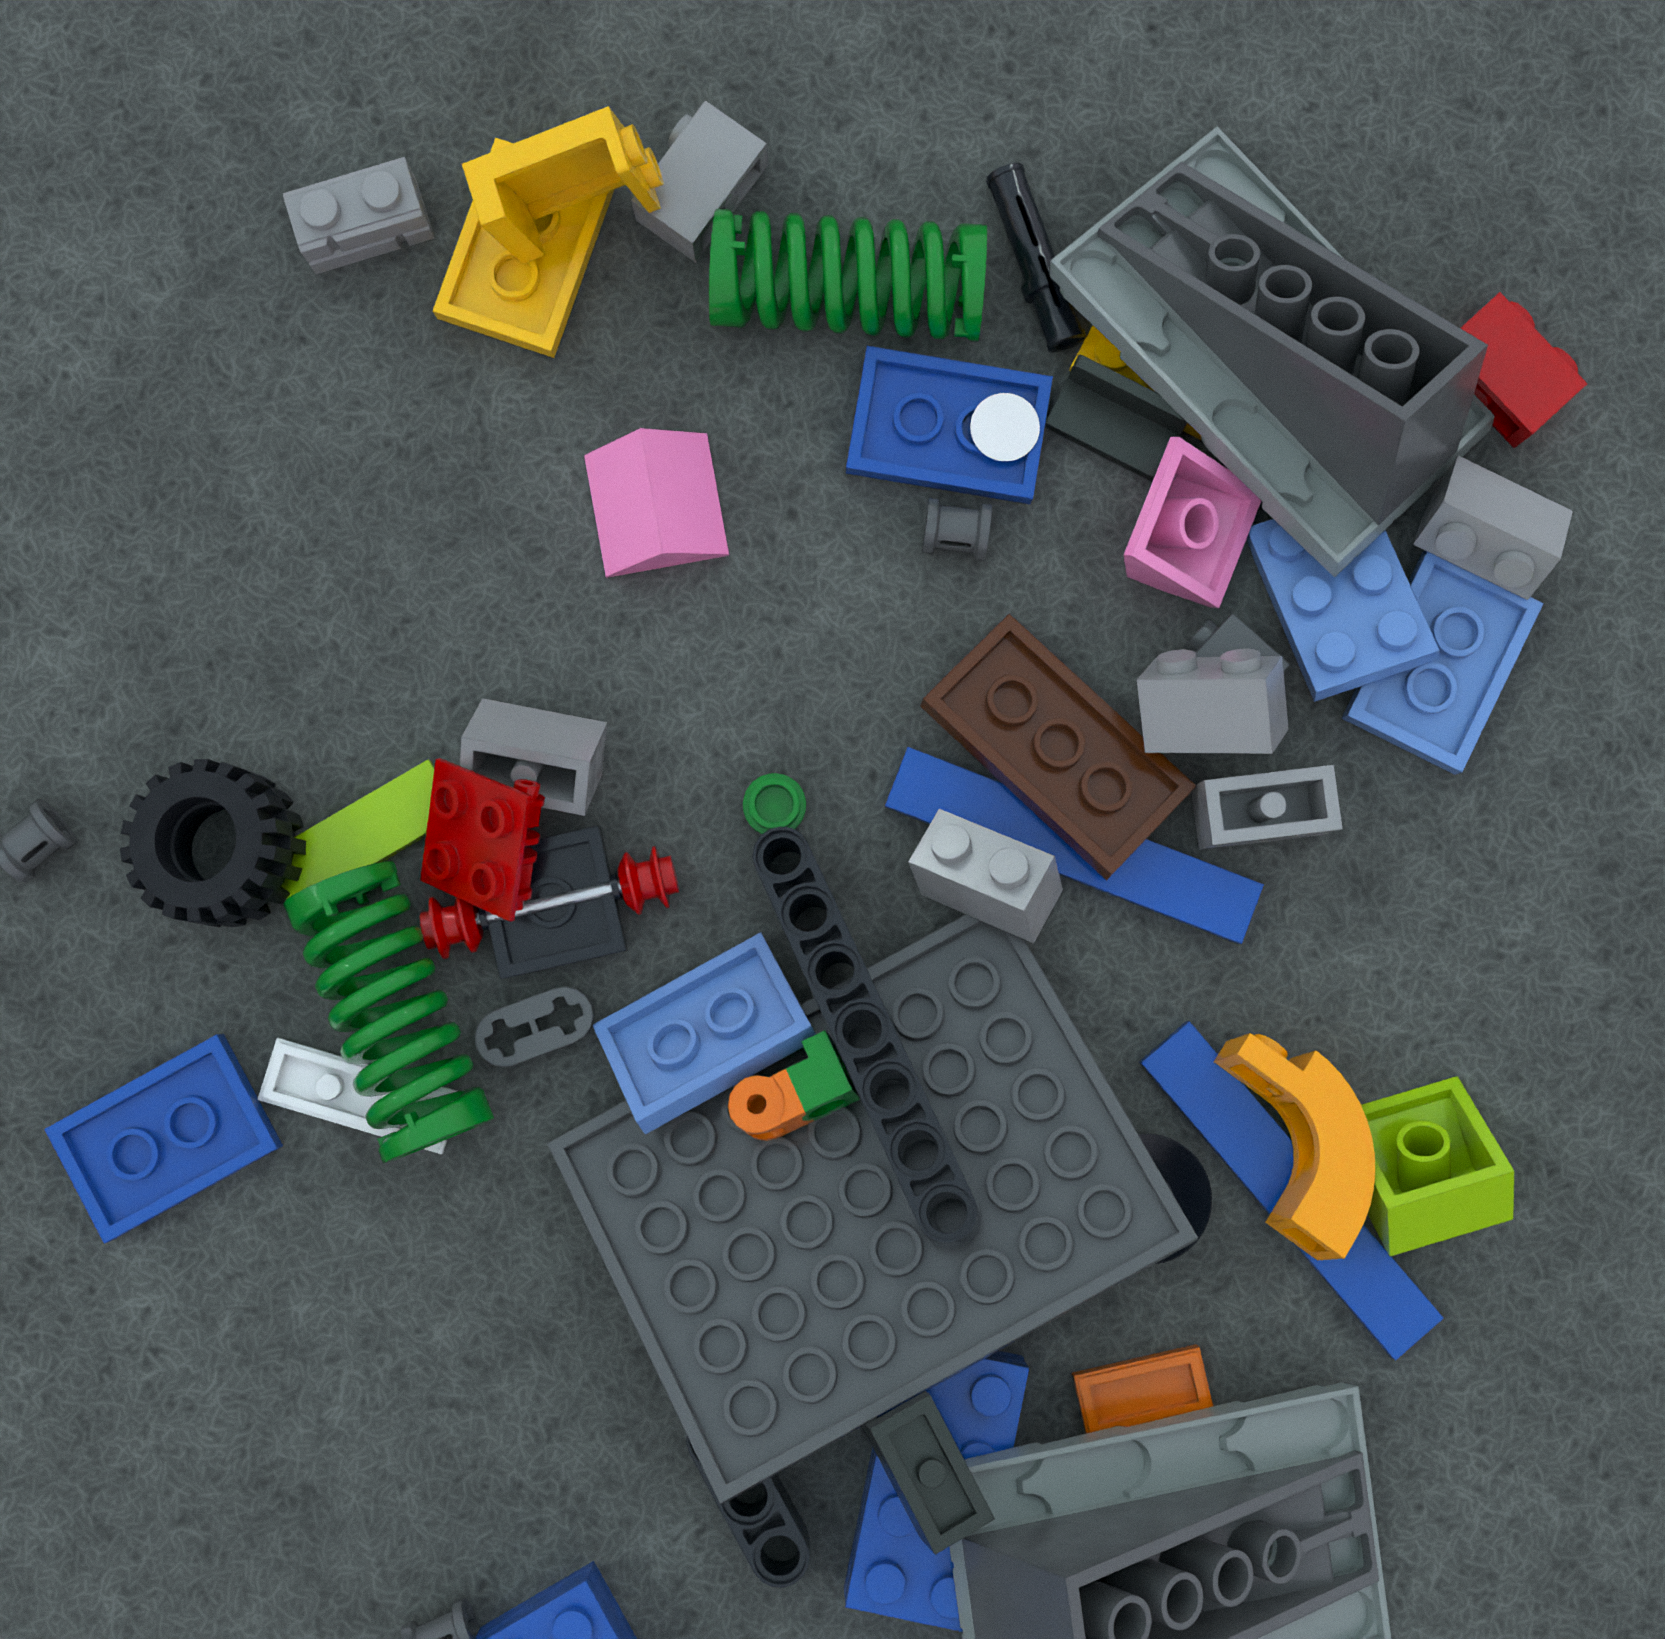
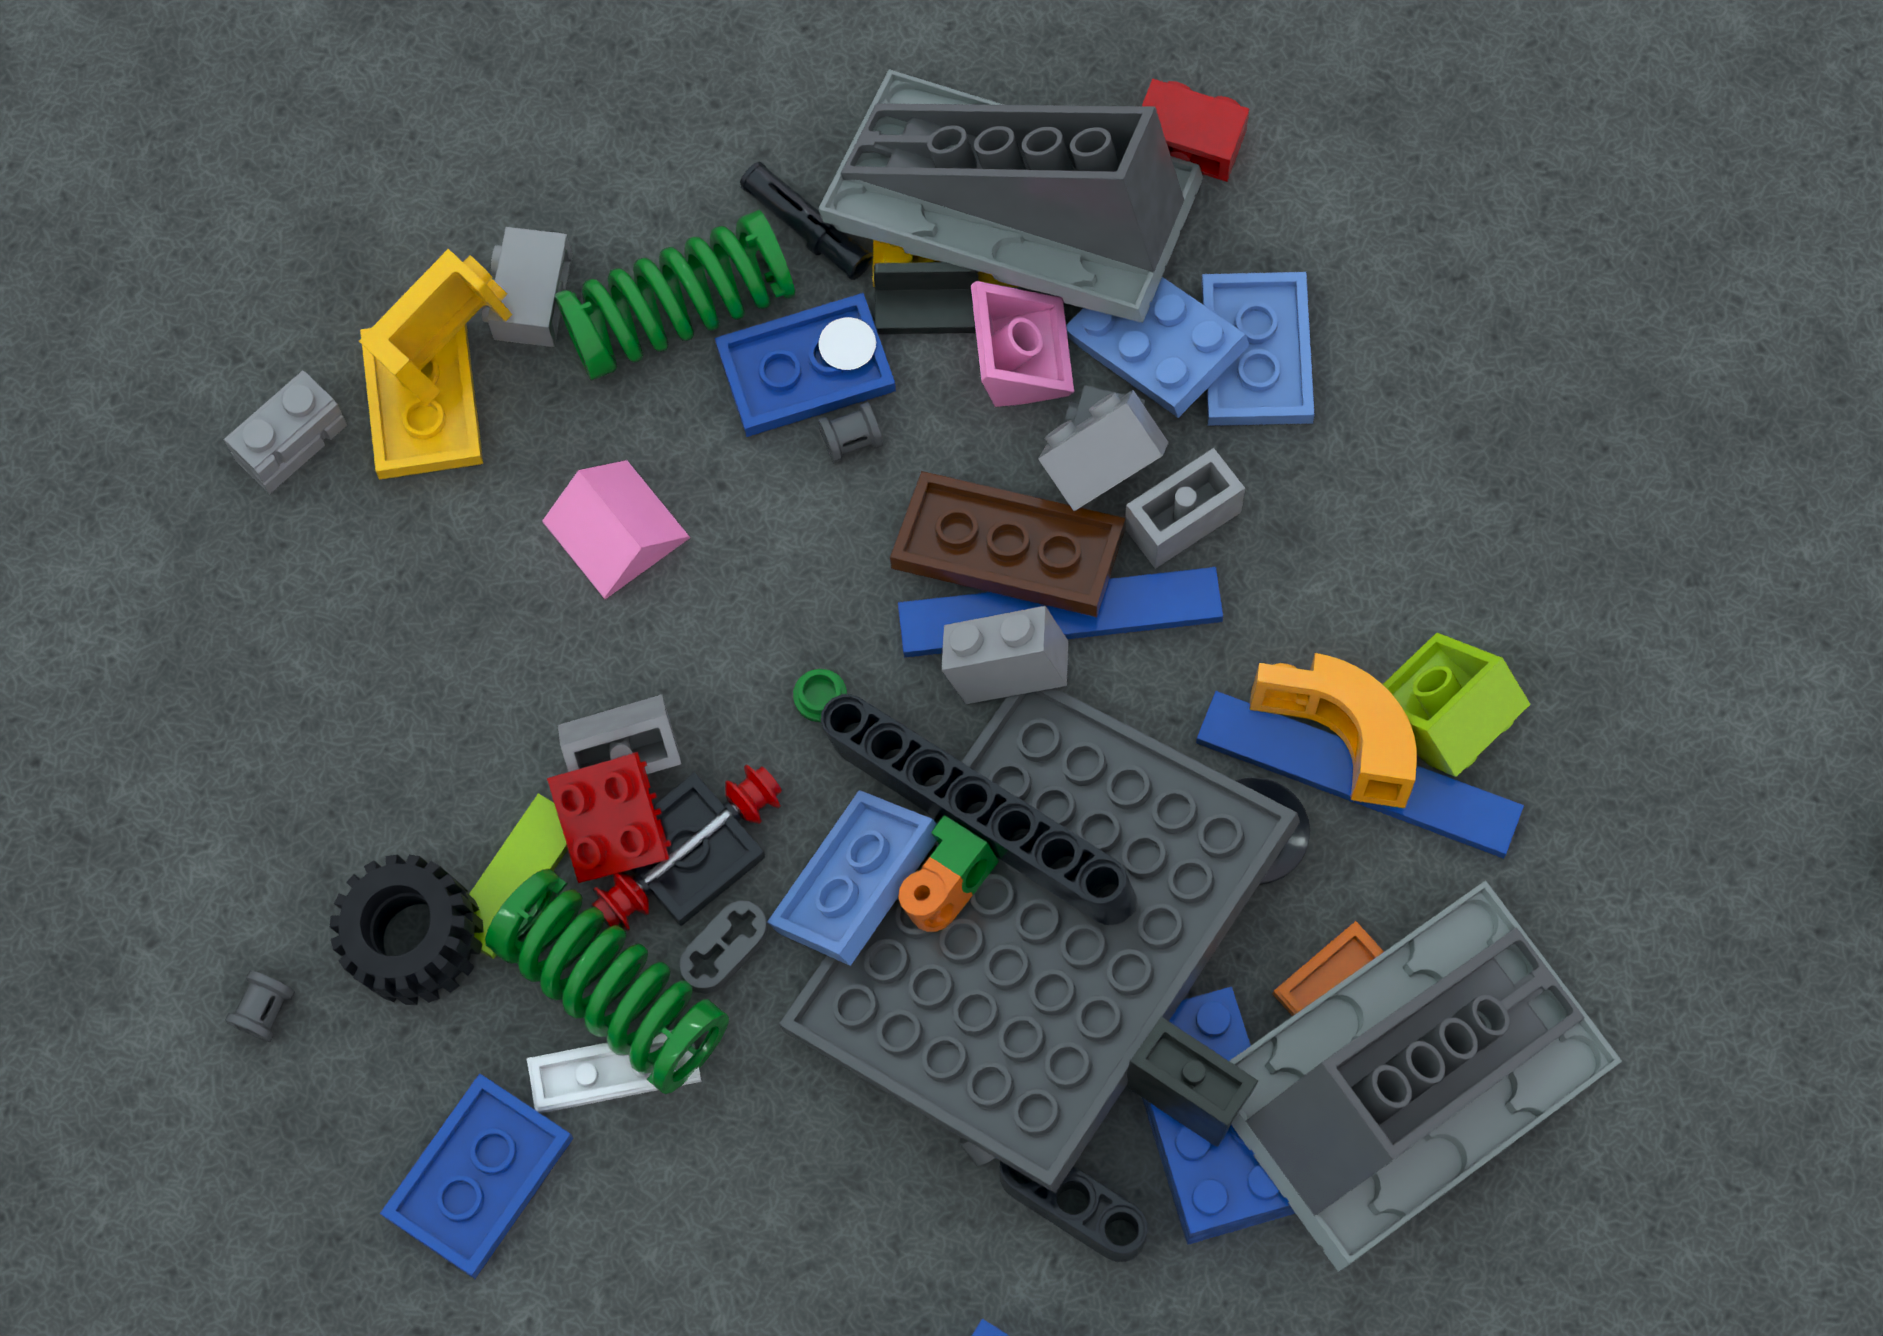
camera: 20 degrees left, 15 degrees down
(1493, 528) = (1239, 238): light grey brick -> none

